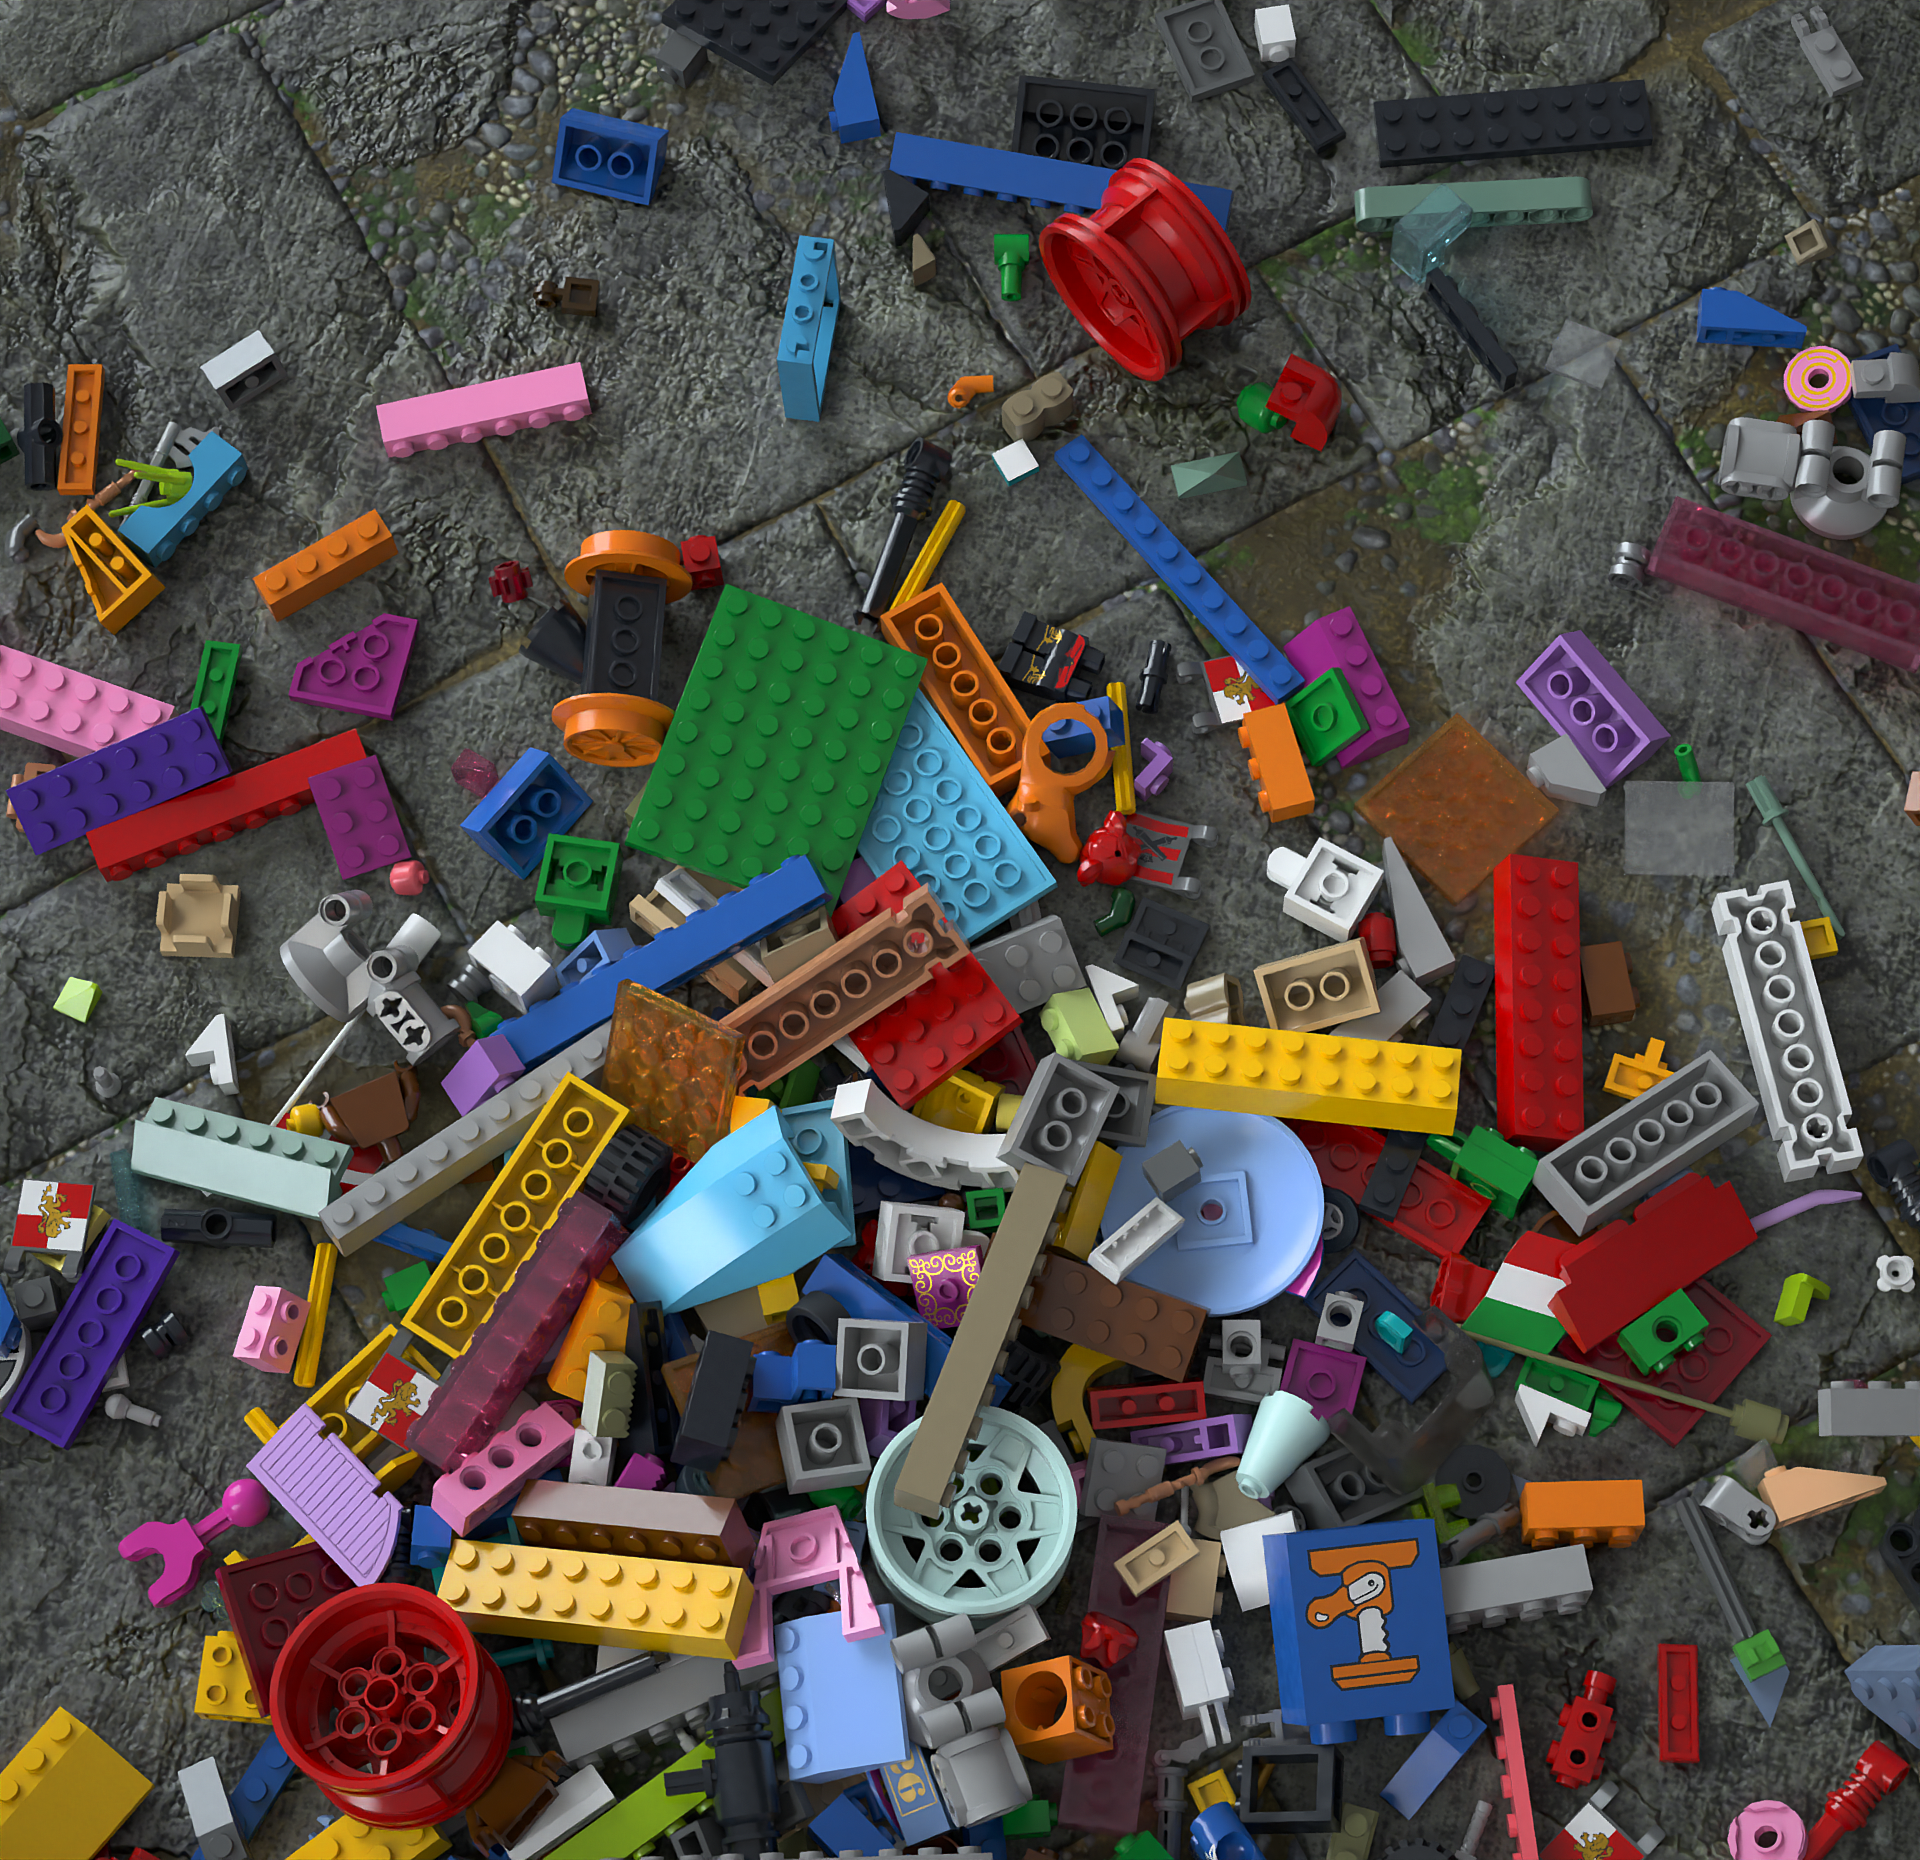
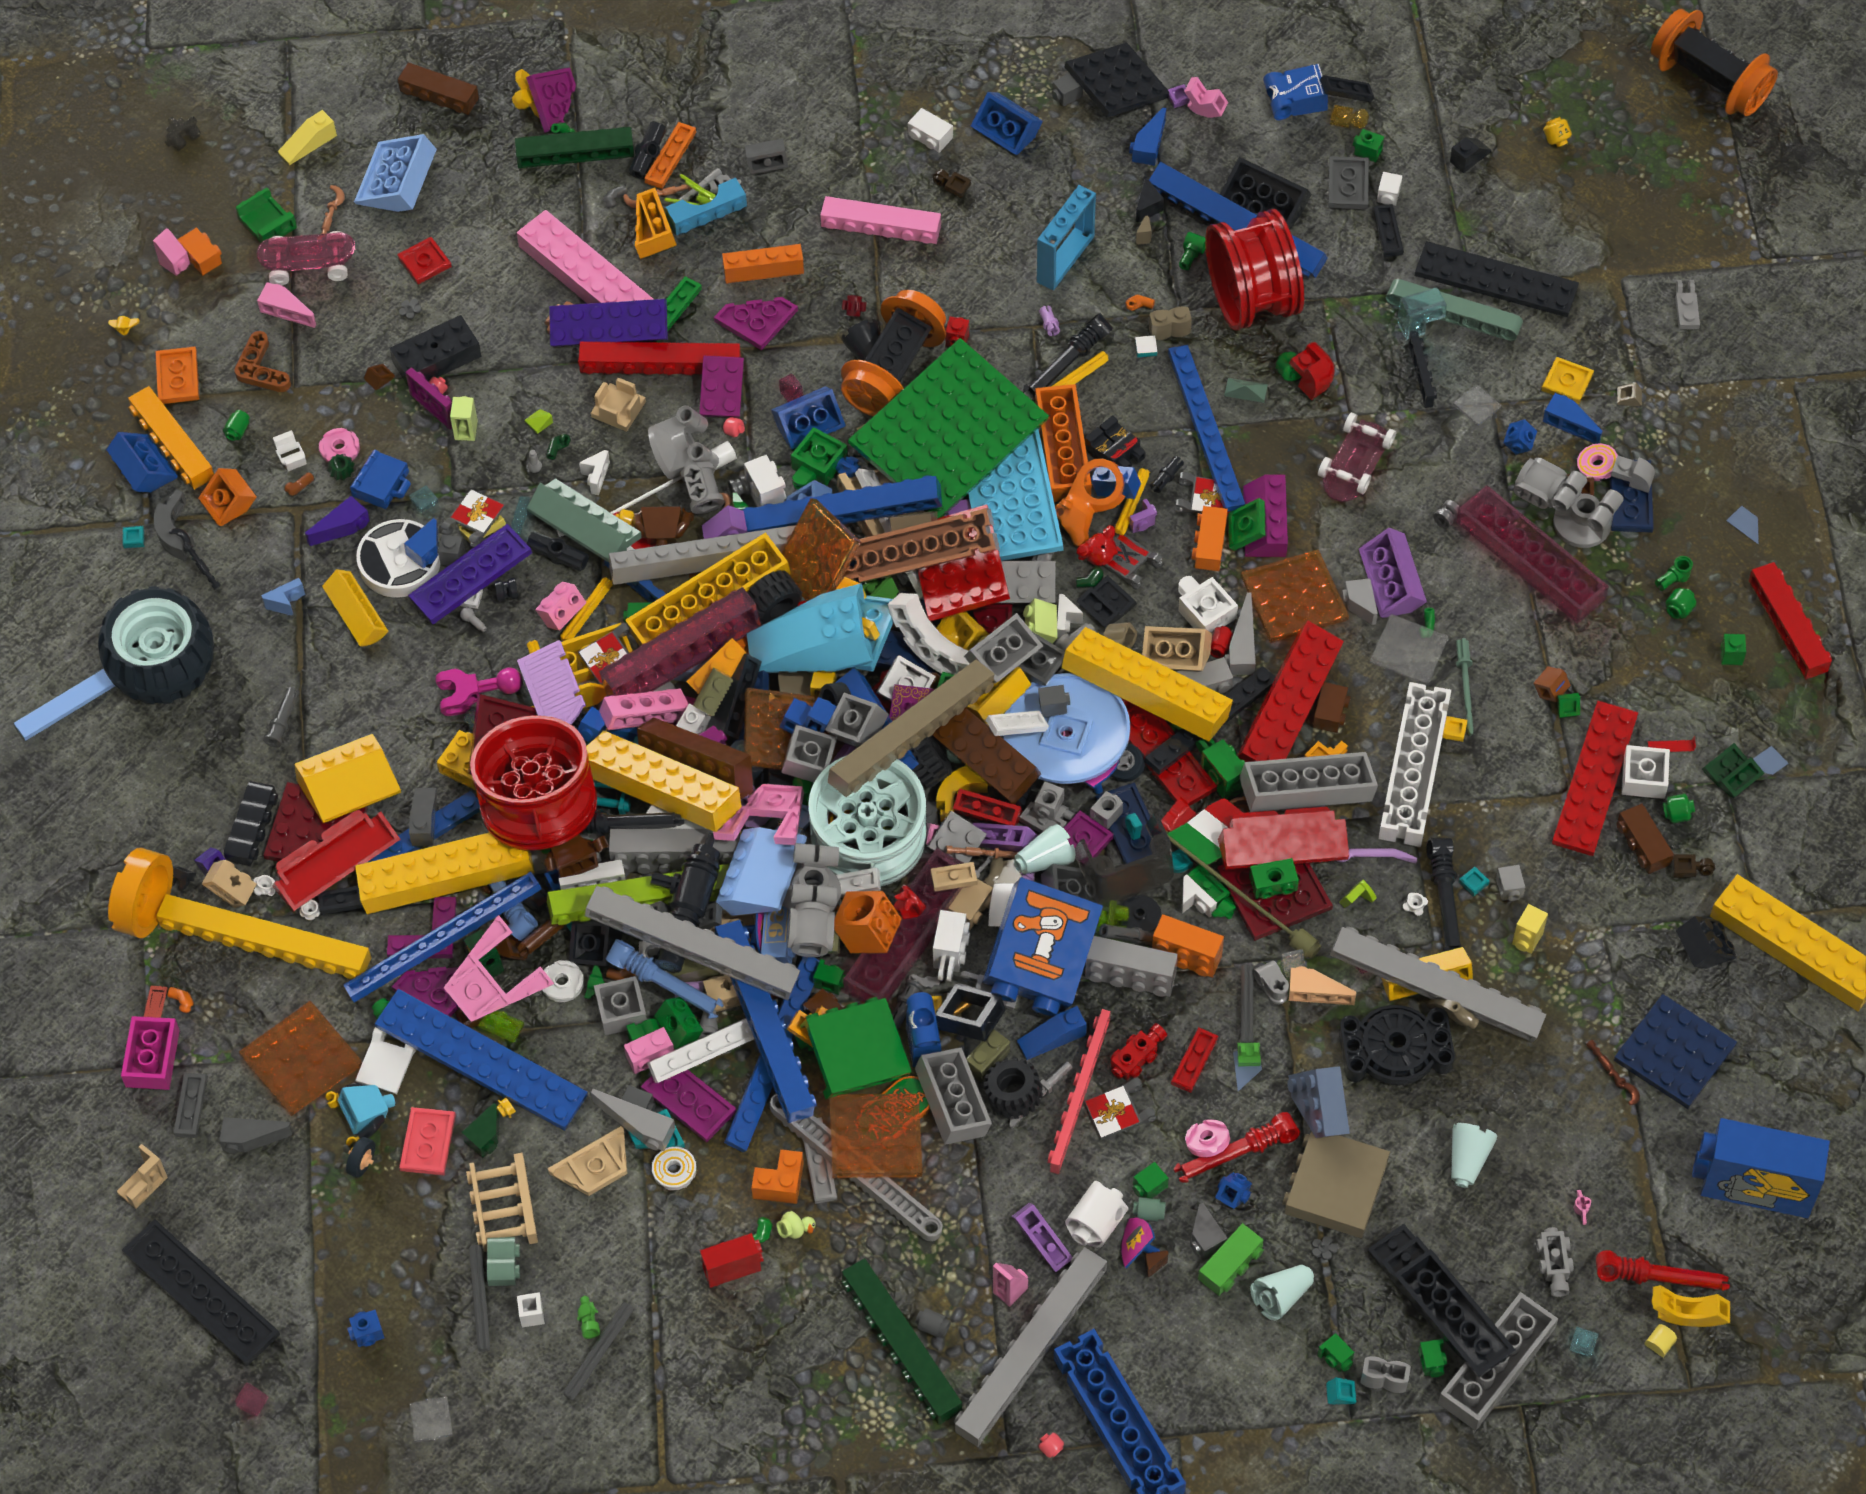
camera: 20 degrees right, 10 degrees down
(128, 1031) = (557, 444): none -> dark green arm
(491, 217) = (930, 130): none -> white brick
(635, 878) = (848, 465): none -> blue gear
(714, 1402) = (762, 709): black brick -> none
(844, 484) = (1050, 322): none -> lavender pin
(1441, 529) = (1355, 460): none -> clear pink piece
(1462, 1676) = (1085, 997): olive cone -> none
(1681, 387) = (1520, 437): none -> blue brick
(1703, 255) = (1567, 379): none -> yellow tile

